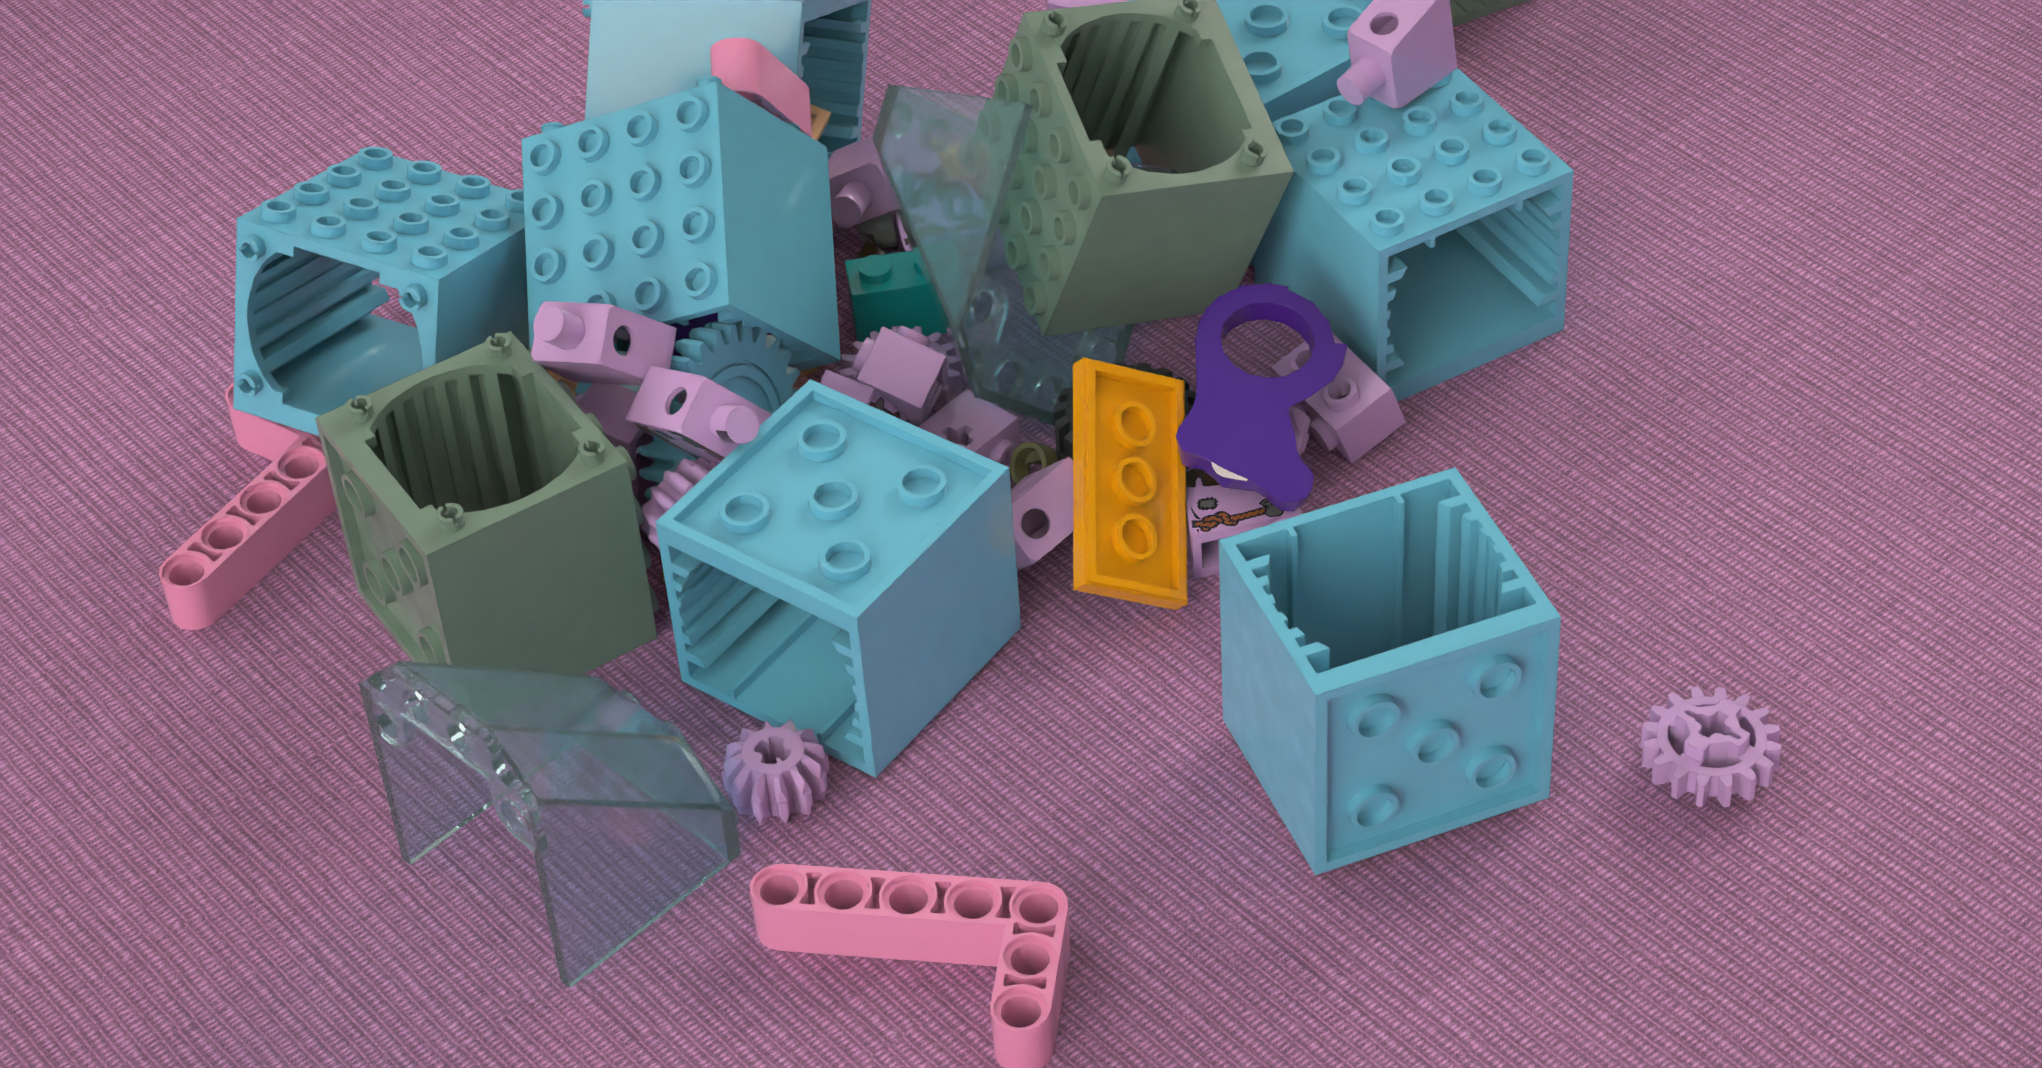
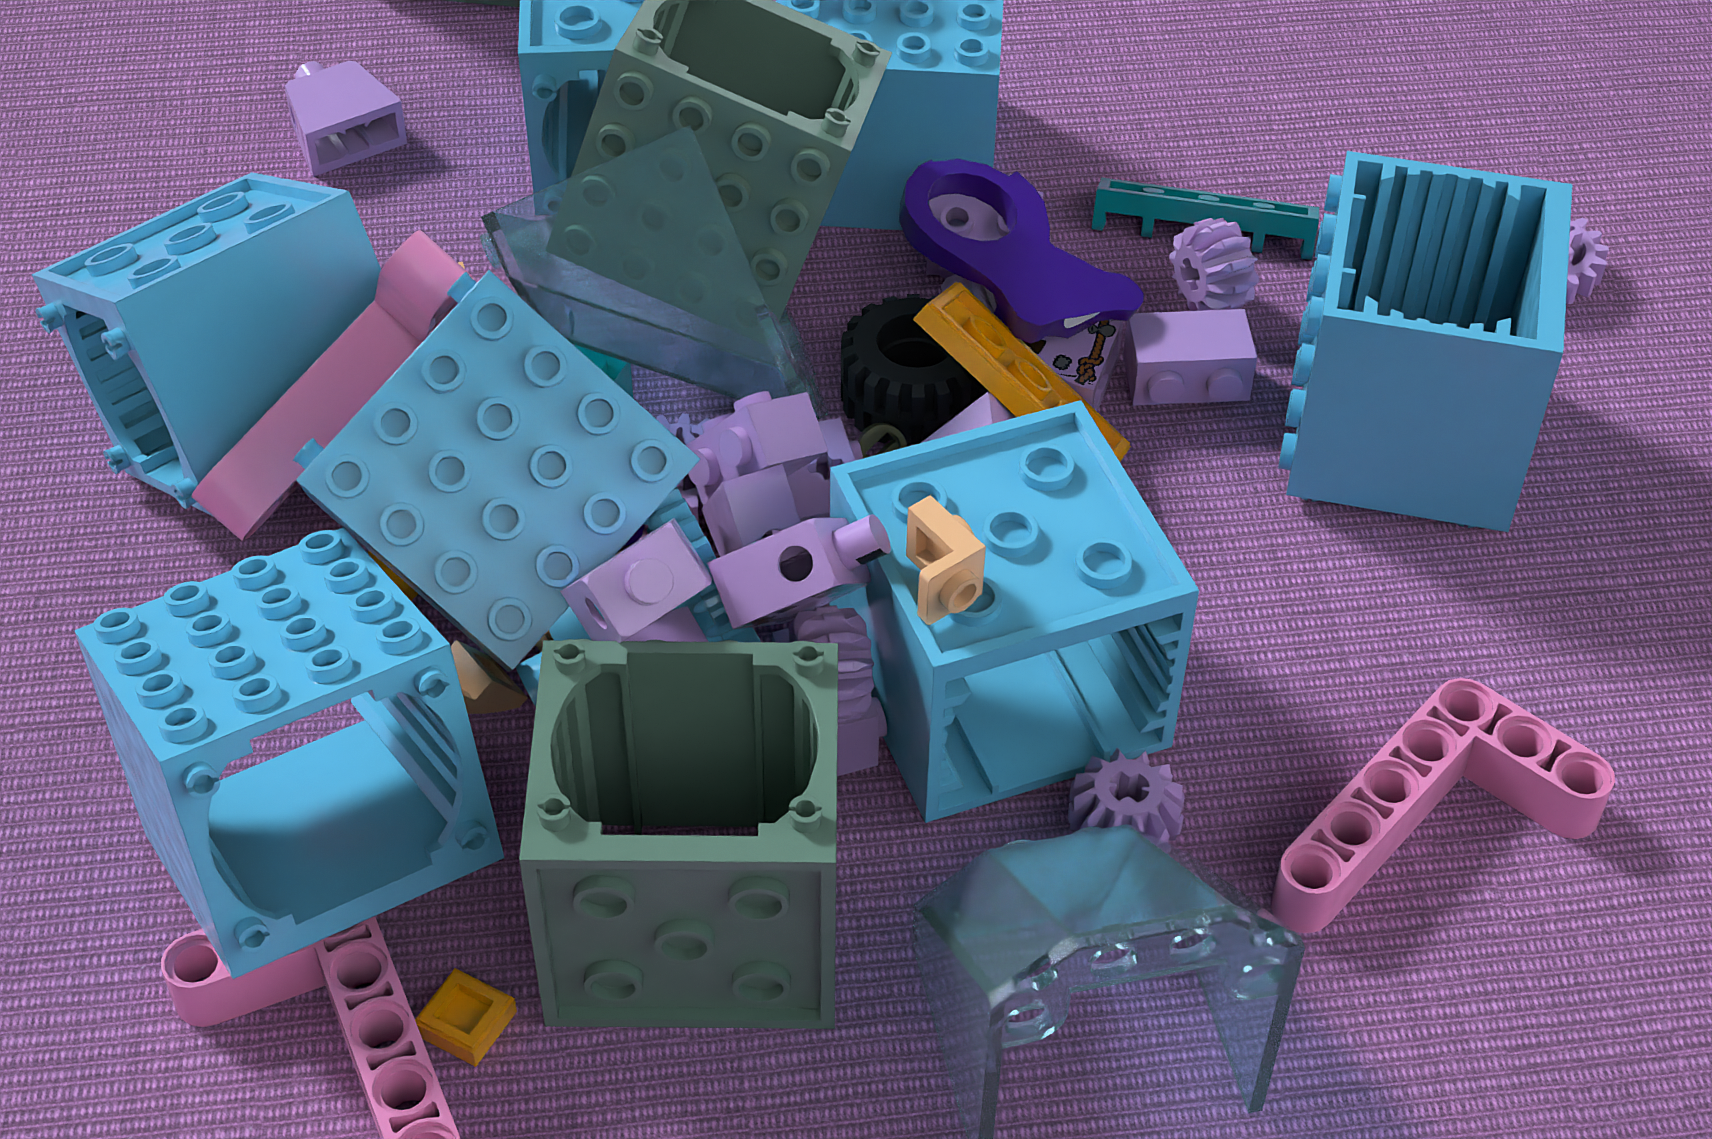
camera: 60 degrees left, 5 degrees up
(323, 551) = (465, 1017): none -> light orange tile
(740, 472) = (948, 560): none -> light nougat bracket
(1535, 514) = (1192, 206): none -> teal hinge

